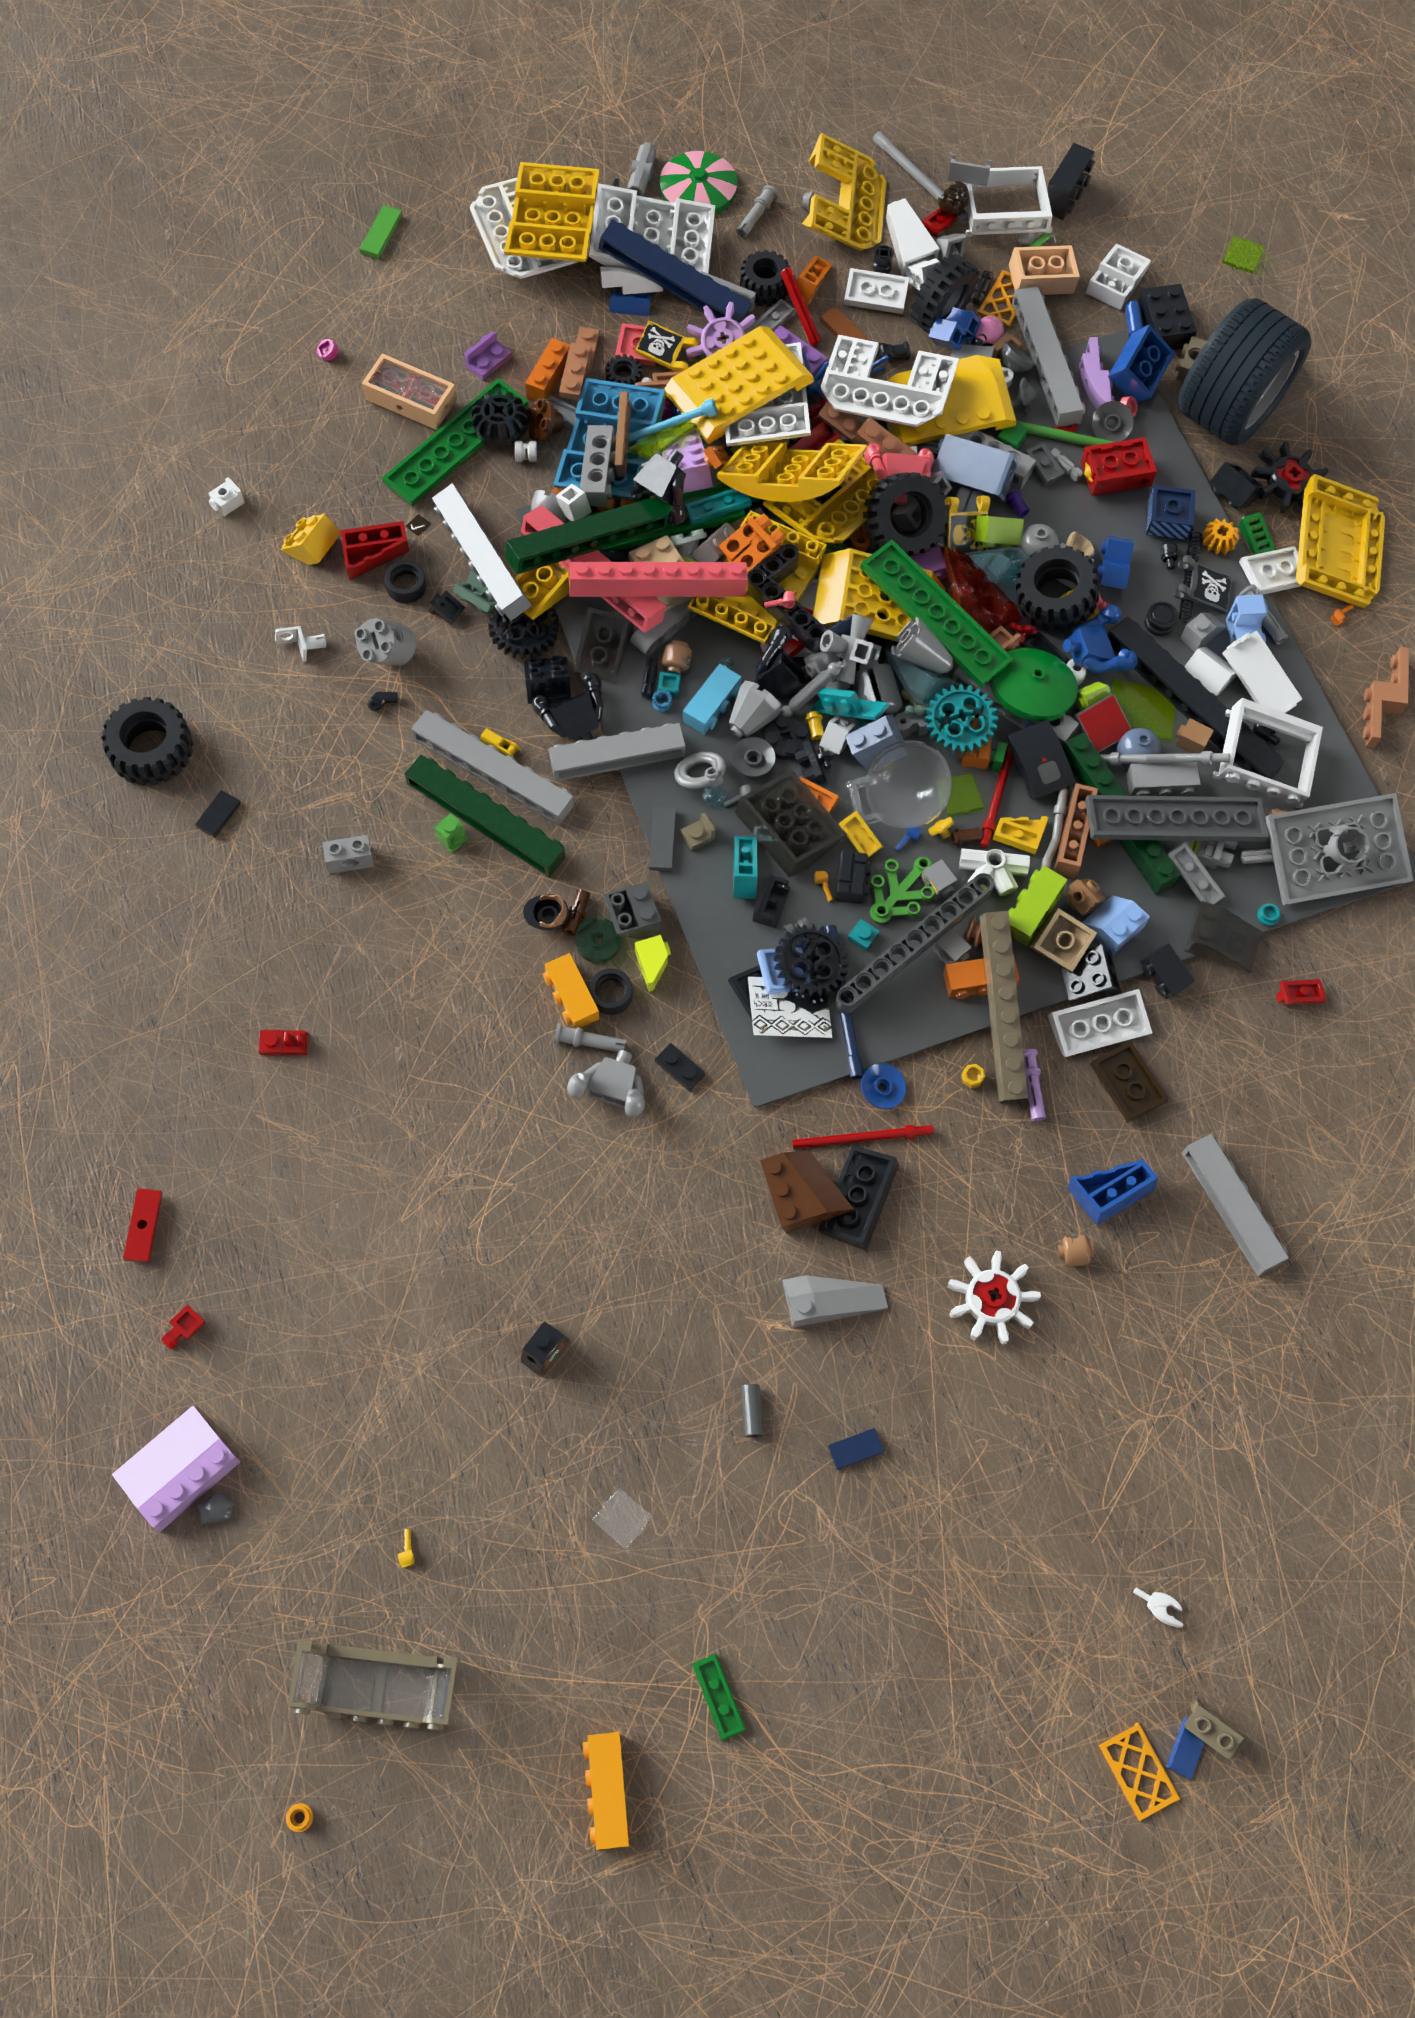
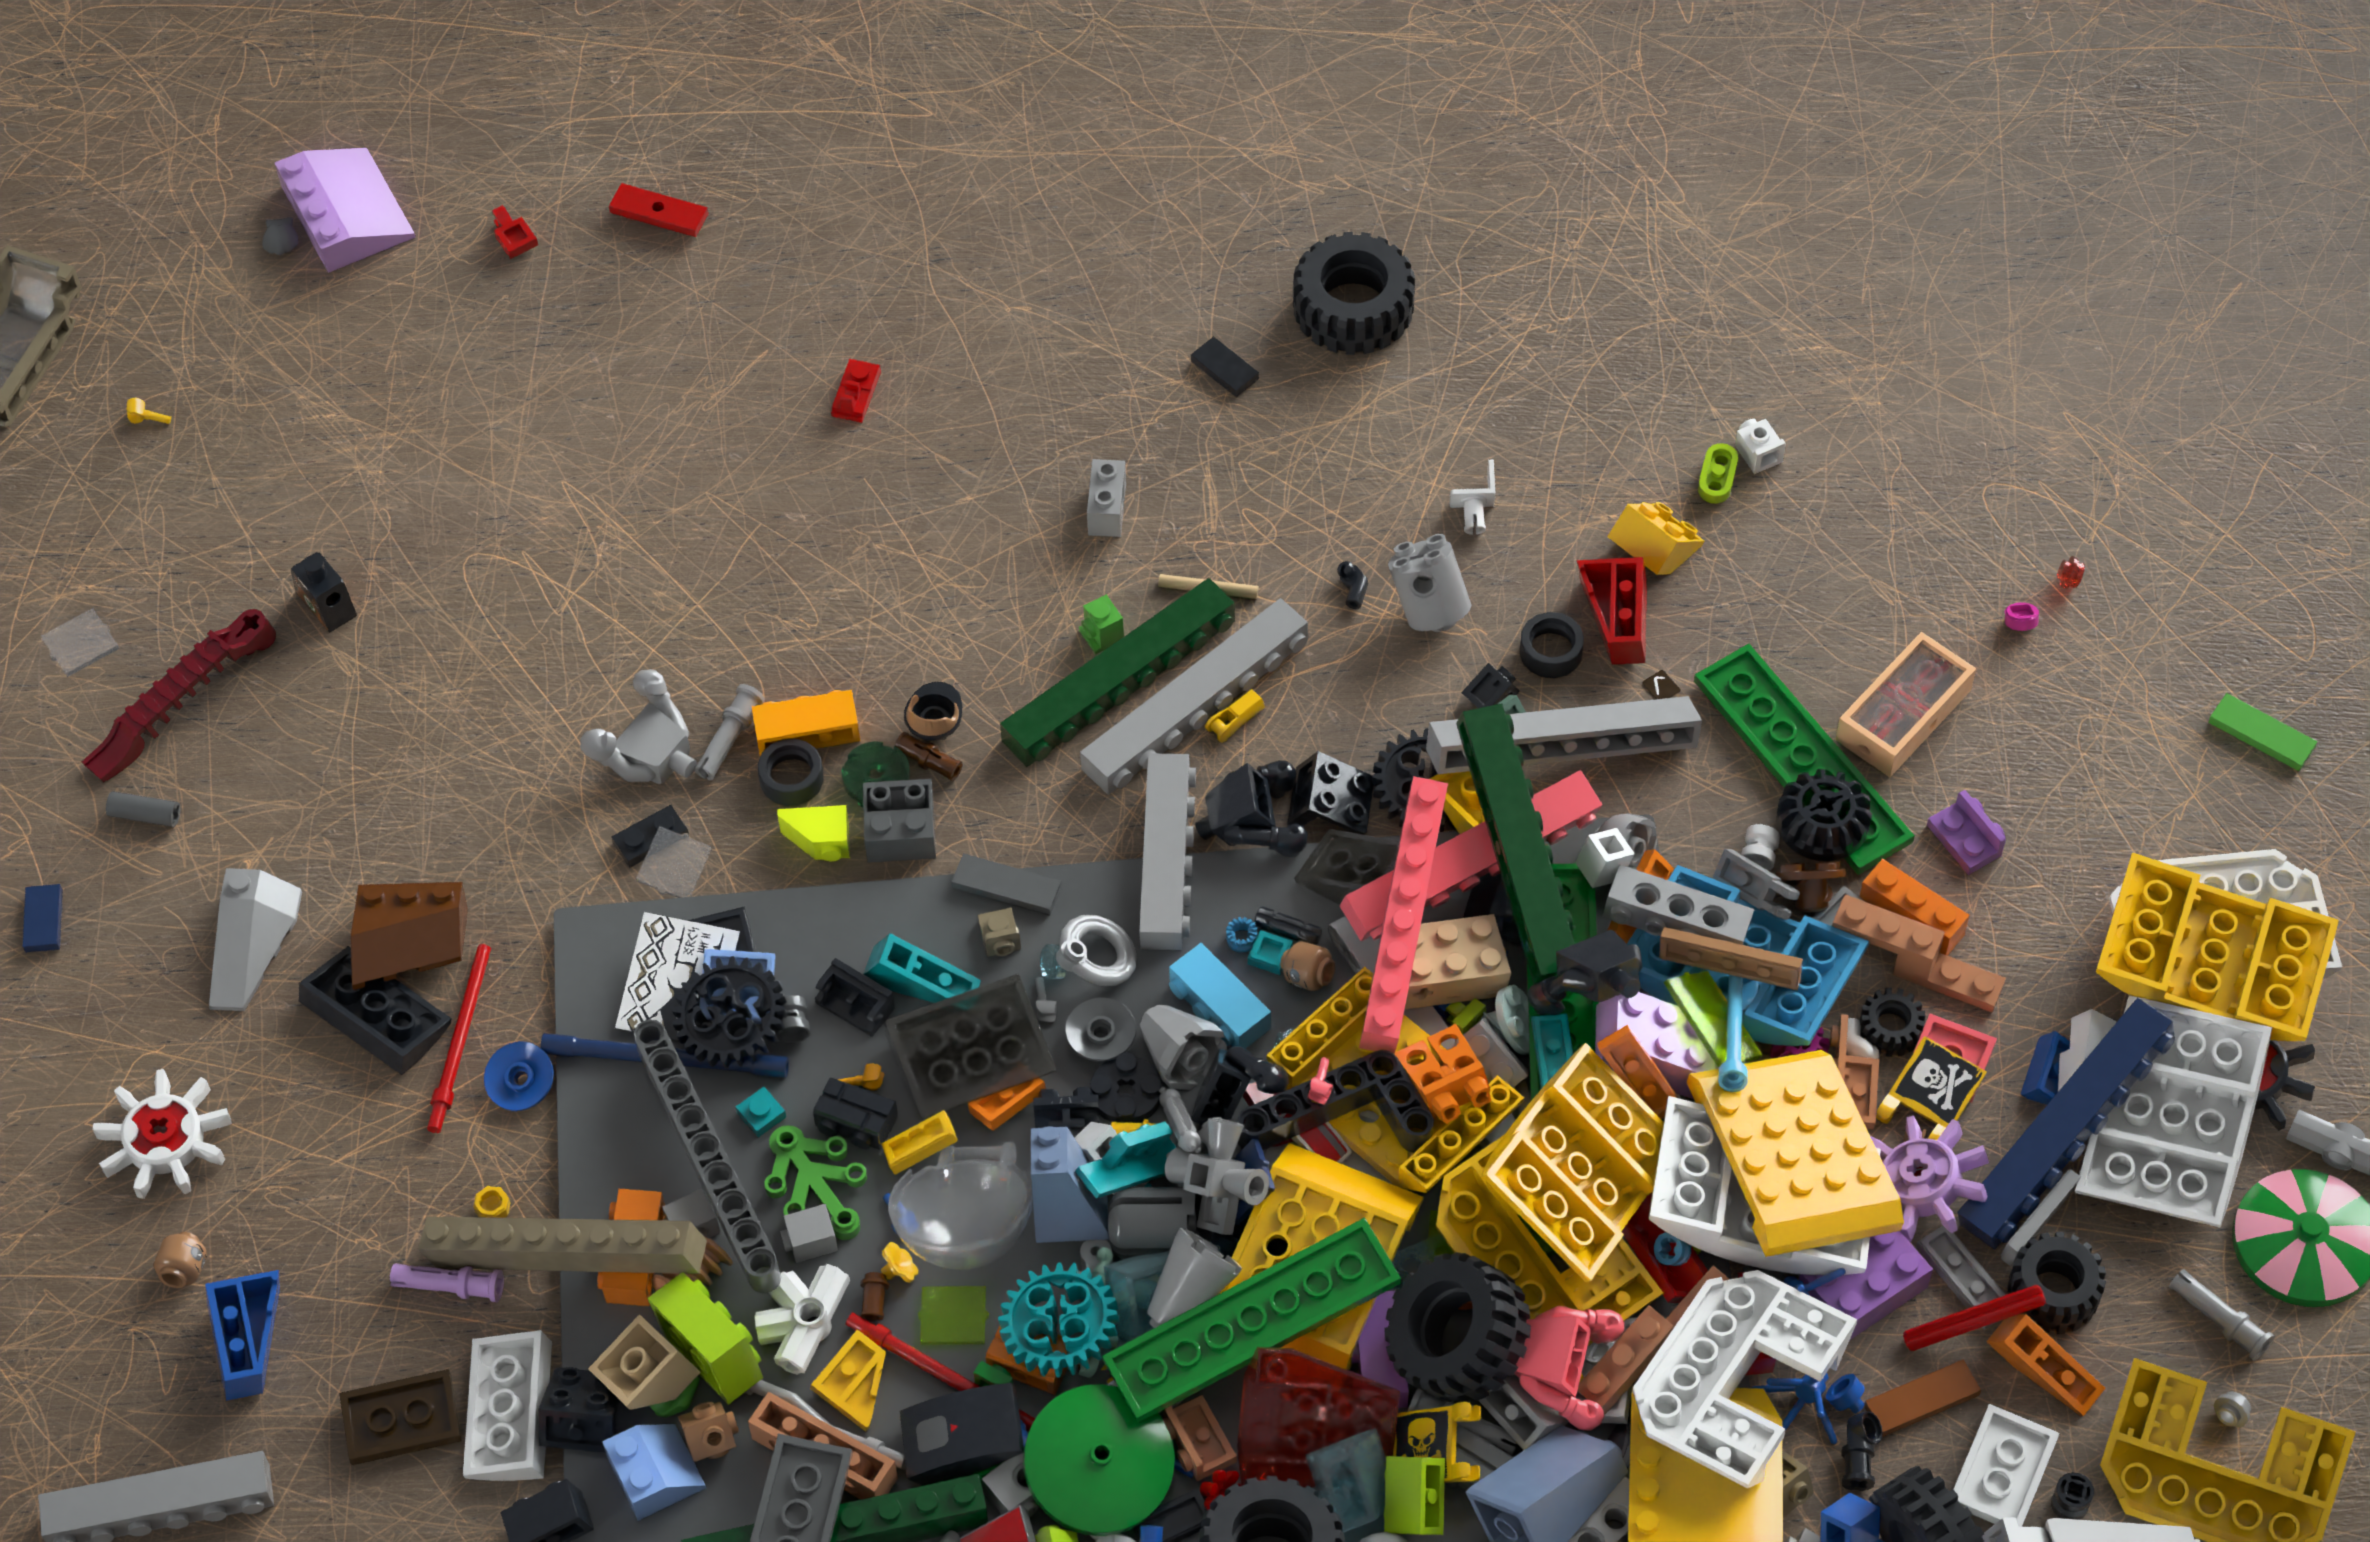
camera: 110 degrees right, 10 degrees down
(253, 516) = (1716, 475): none -> lime plate
(290, 329) = (2071, 572): none -> clear red plate
(401, 782) = (1188, 584): none -> tan bar
(557, 441) = (1756, 883): none -> light grey hinge
(697, 1440) = (124, 744): none -> dark red piece
(699, 1042) = (673, 863): none -> clear piece
(815, 441) = (1662, 1248): none -> dark azure bush

